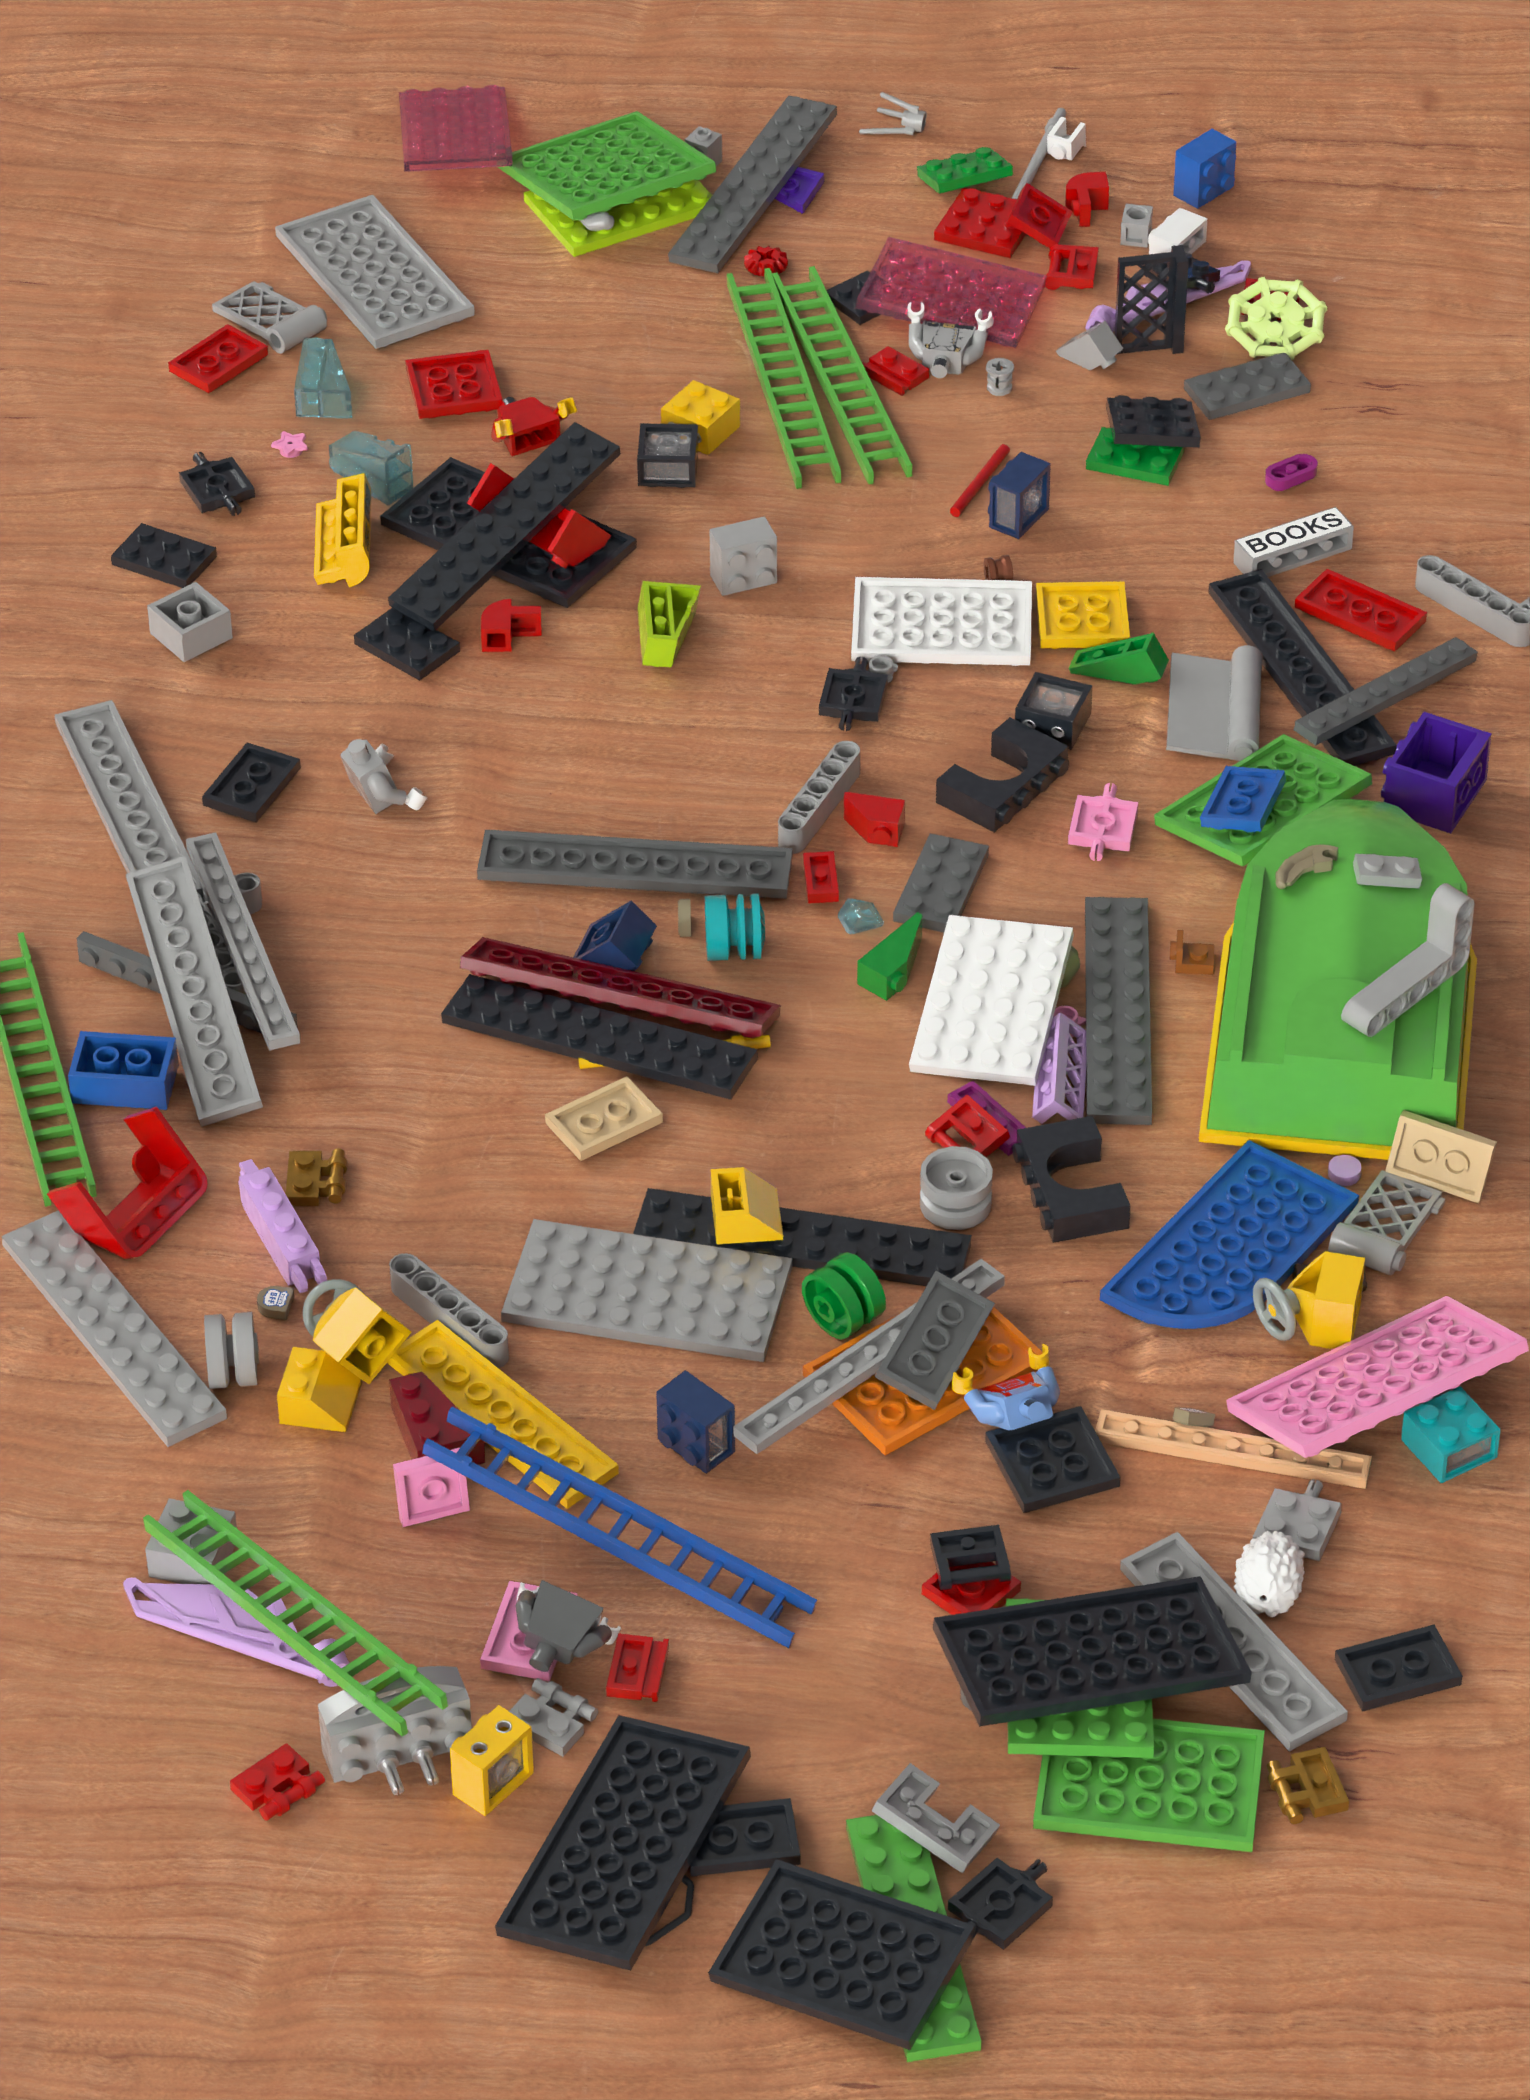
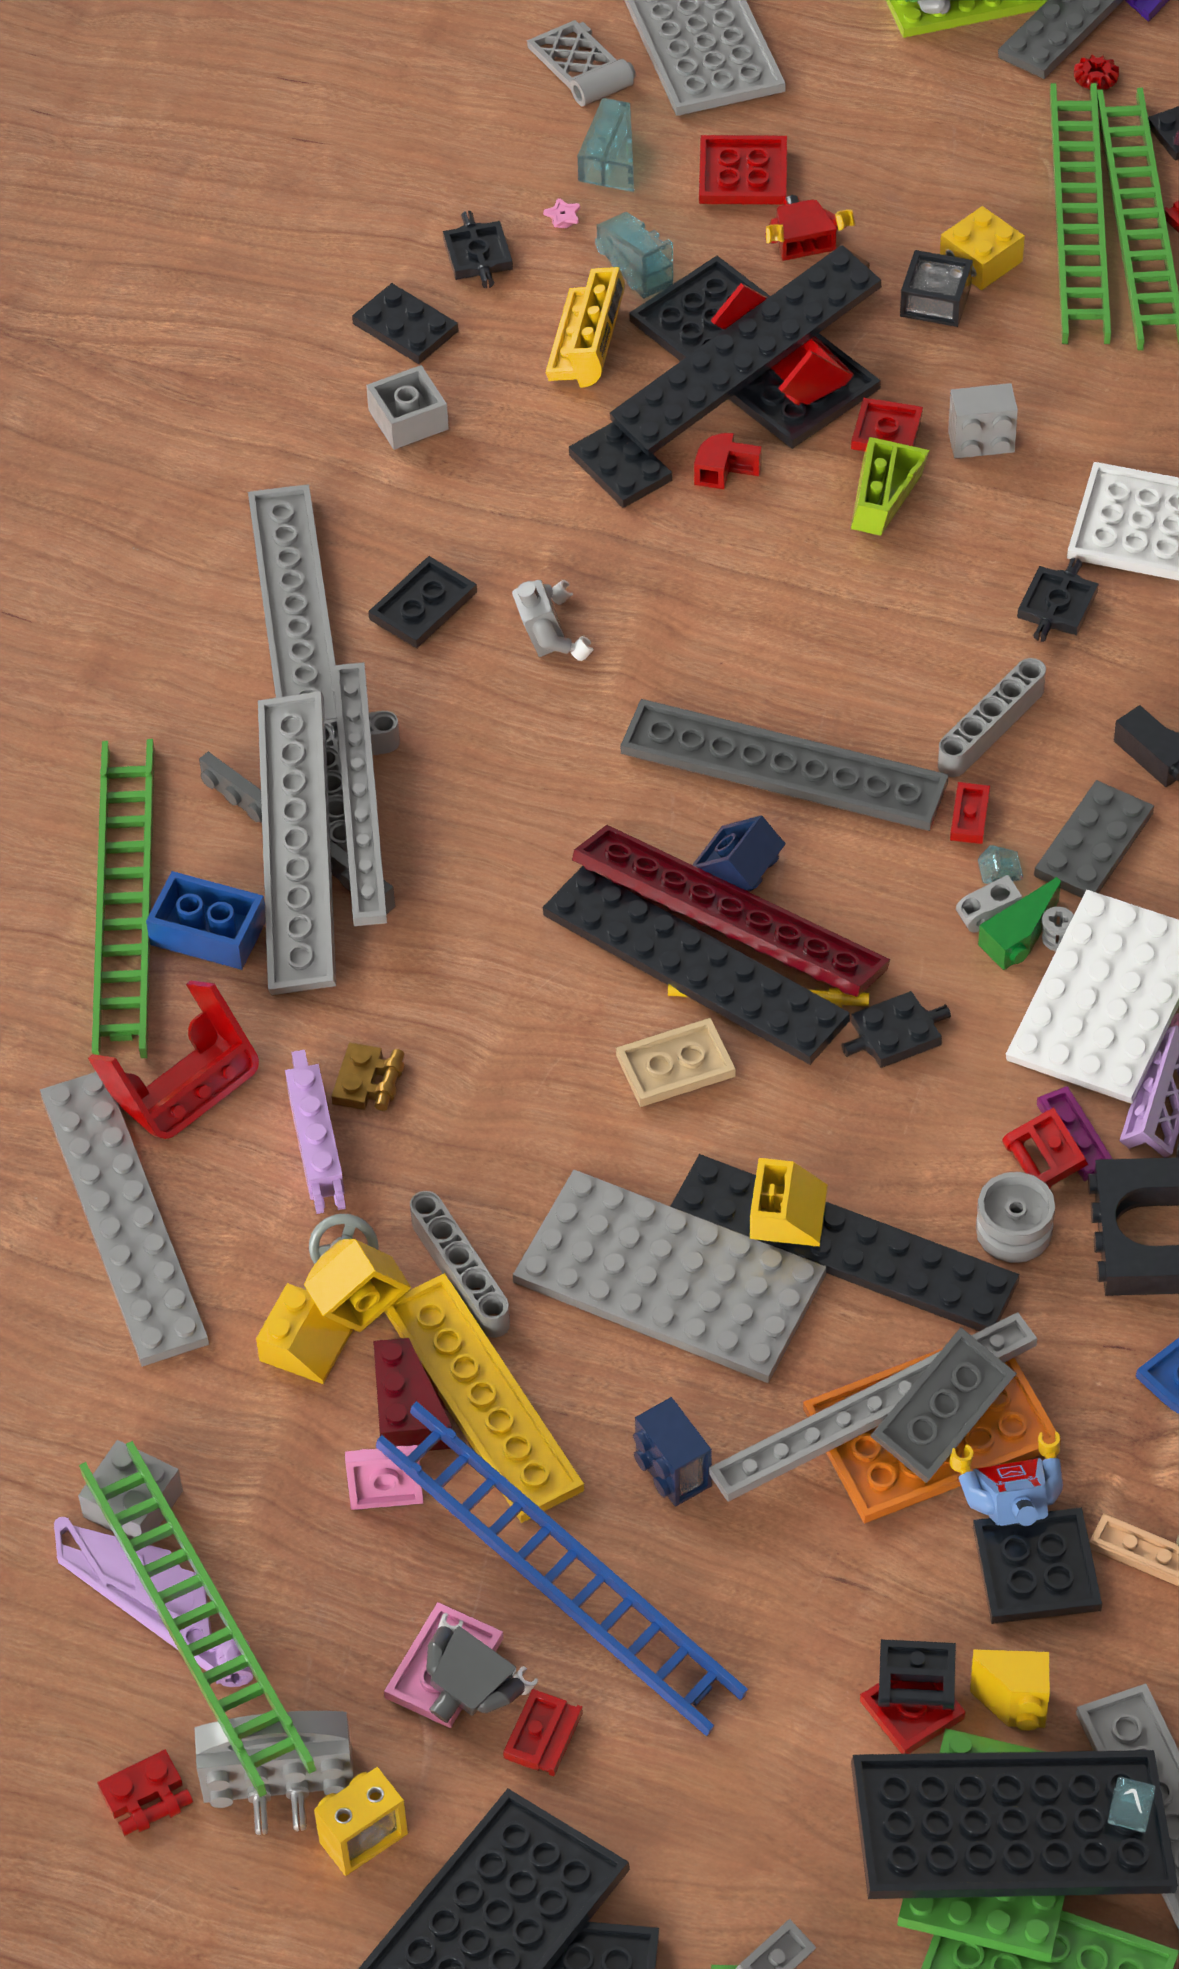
camera: 15 degrees right, 10 degrees up
(218, 358) = (516, 104): red plate -> none
(233, 1349) = (225, 1273): light grey wheel -> none
(275, 1301) = (291, 1217): dark tan tile -> none
(550, 1727) = (432, 1779): light grey plate -> none
(649, 568) = (887, 422): none -> red plate
(684, 918) = (818, 836): dark tan tile -> none
(733, 927) = (861, 862): teal wheel -> none
(801, 1061) = (896, 1029): none -> black plate
(843, 1295) = (864, 1328): green wheel -> none
(857, 944) = (987, 902): none -> light grey leg
(875, 817) = (1044, 752): red slope -> none
(883, 665) = (1096, 571): light grey plate -> none
(923, 957) = (1050, 928): none -> light grey bush
(1058, 1550) = (1012, 1685): none -> yellow slope
(1193, 1614) = (1131, 1804): none -> clear light blue slope

